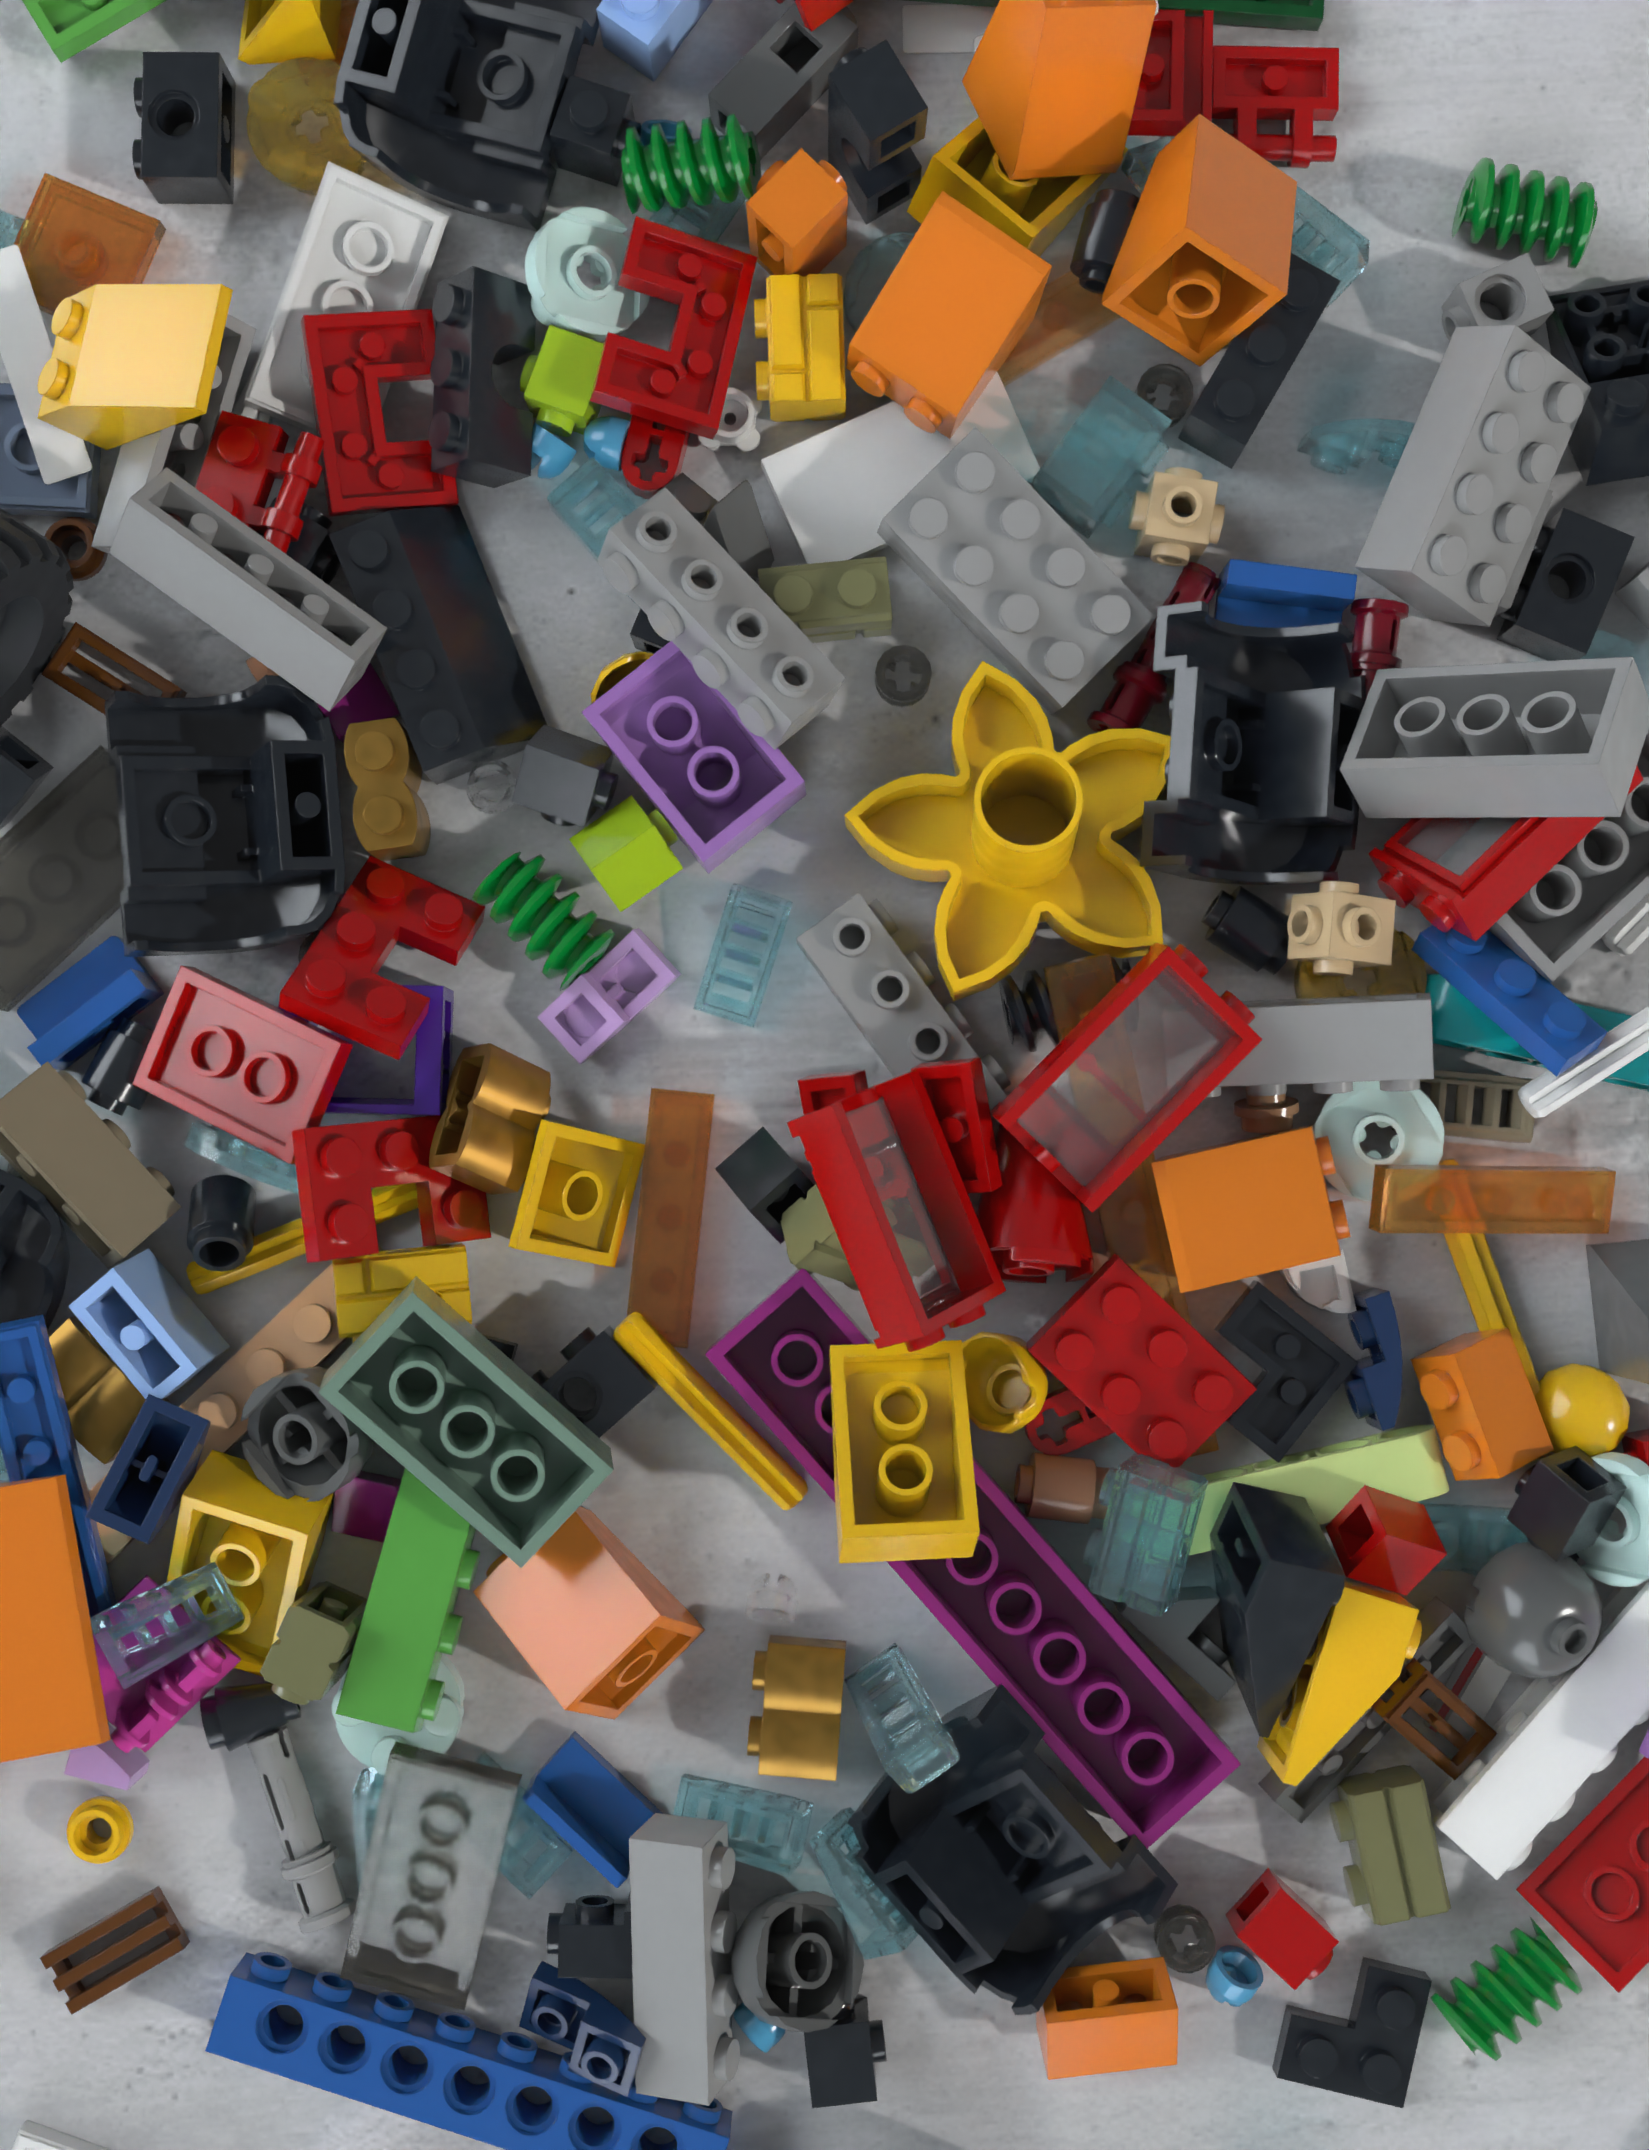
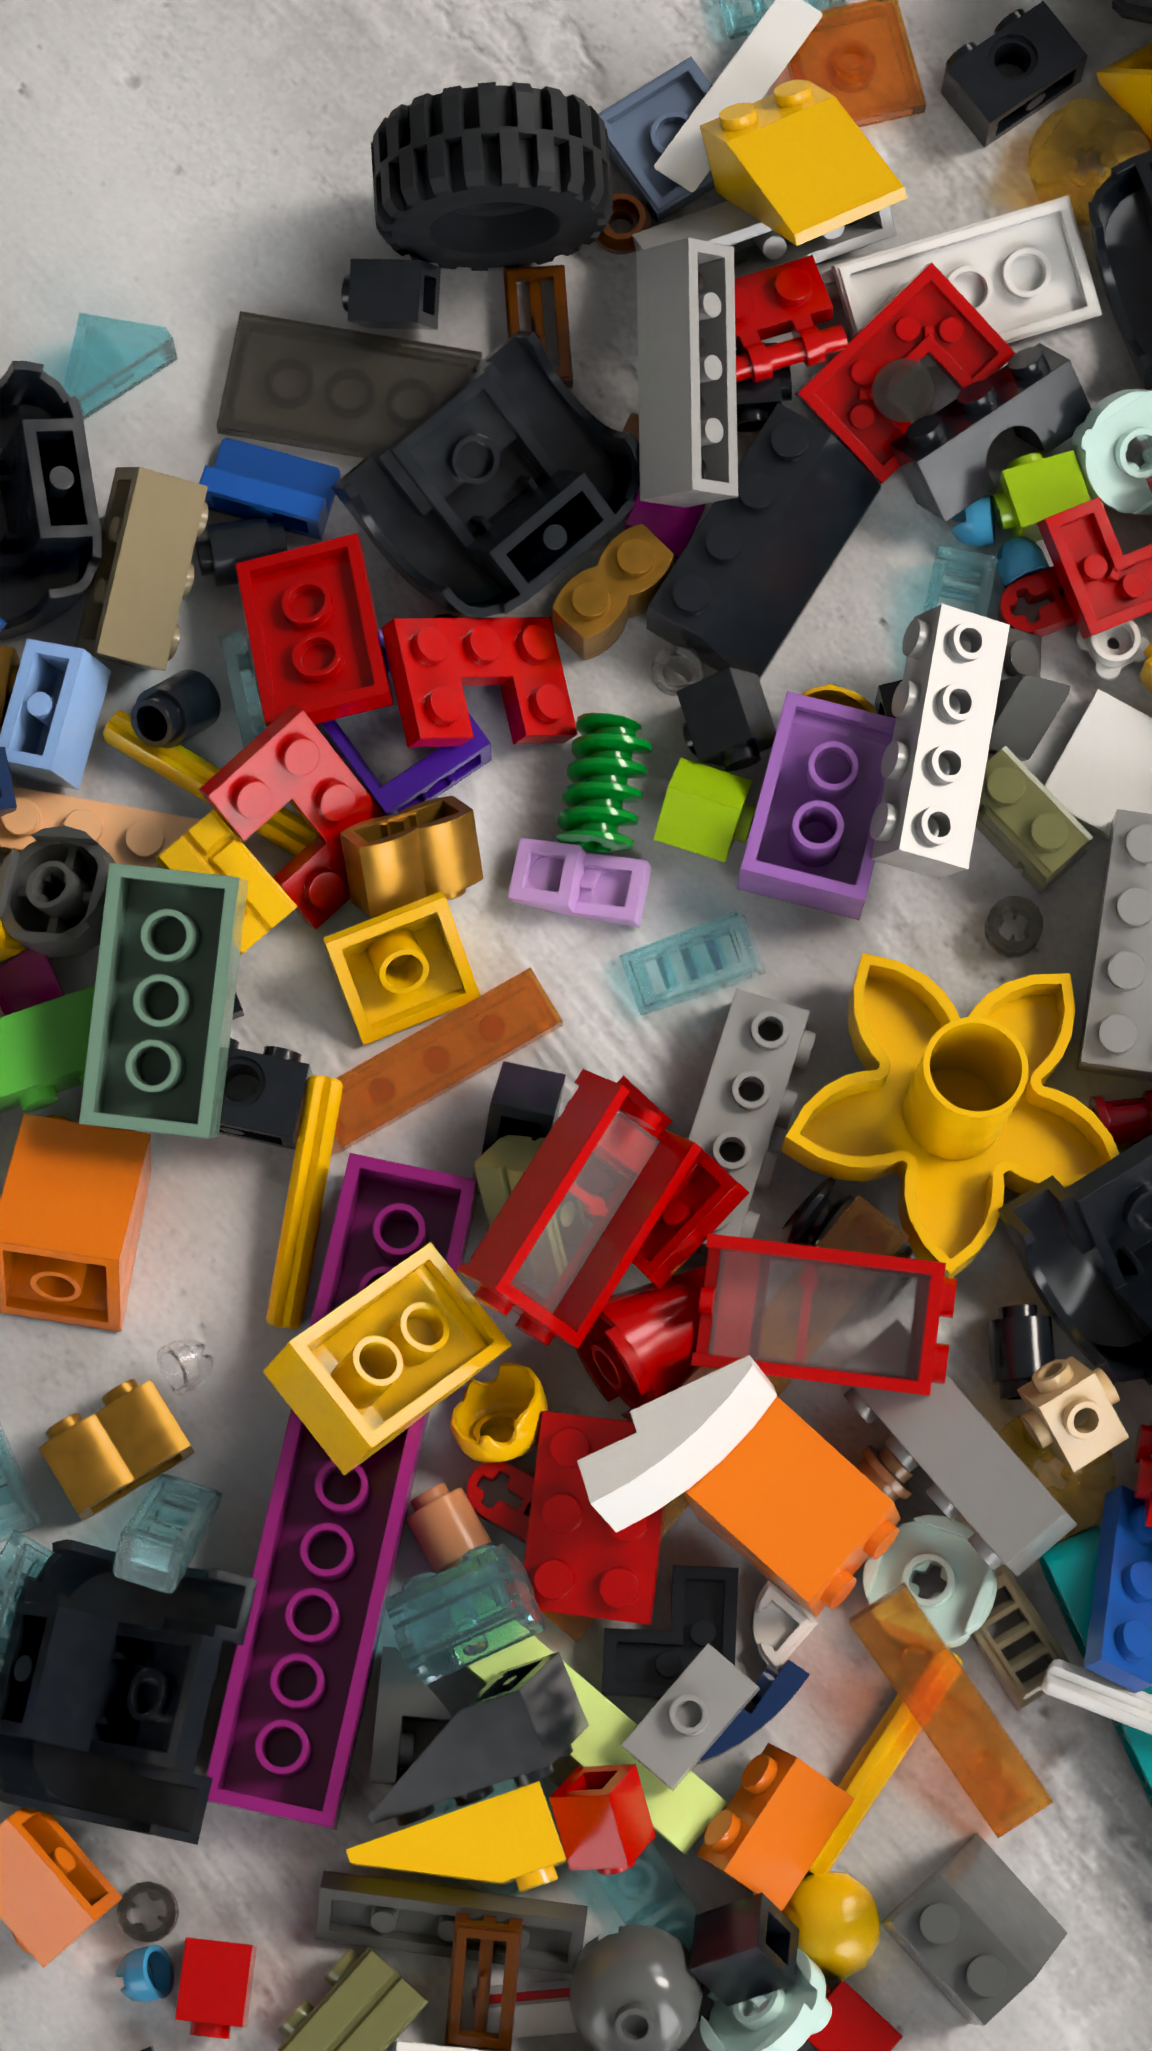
camera: 55 degrees right, 10 degrees down
(395, 423) = (903, 390): none -> clear smoke plate
(1147, 1274) = (675, 1442): none -> white slope
(1357, 1412) = (690, 1717): none -> light grey plate

